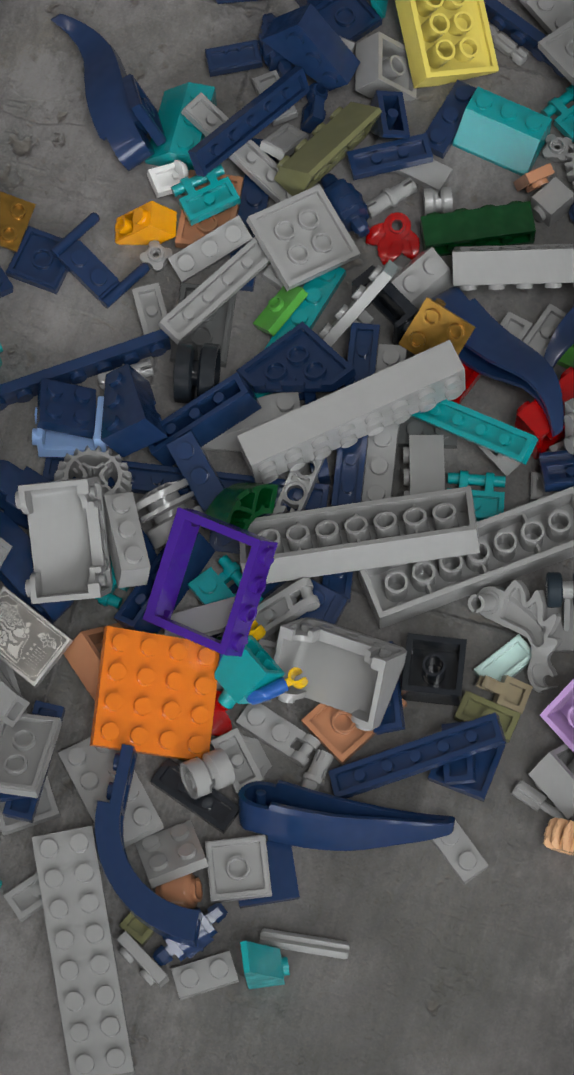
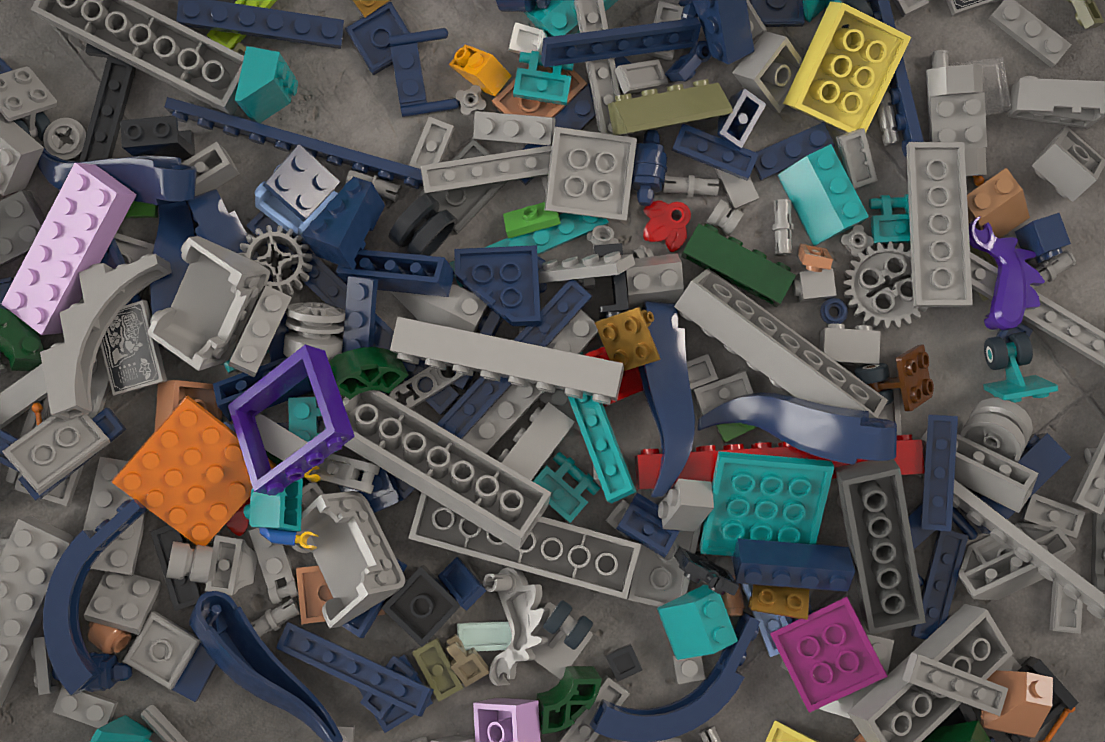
camera: 35 degrees right, 15 degrees up
(345, 283) = (602, 235): none -> light grey plate
(454, 624) = (461, 583): none -> dark blue tile
(490, 178) = (783, 227): none -> light grey pin
(505, 84) = (857, 158): none -> light grey plate

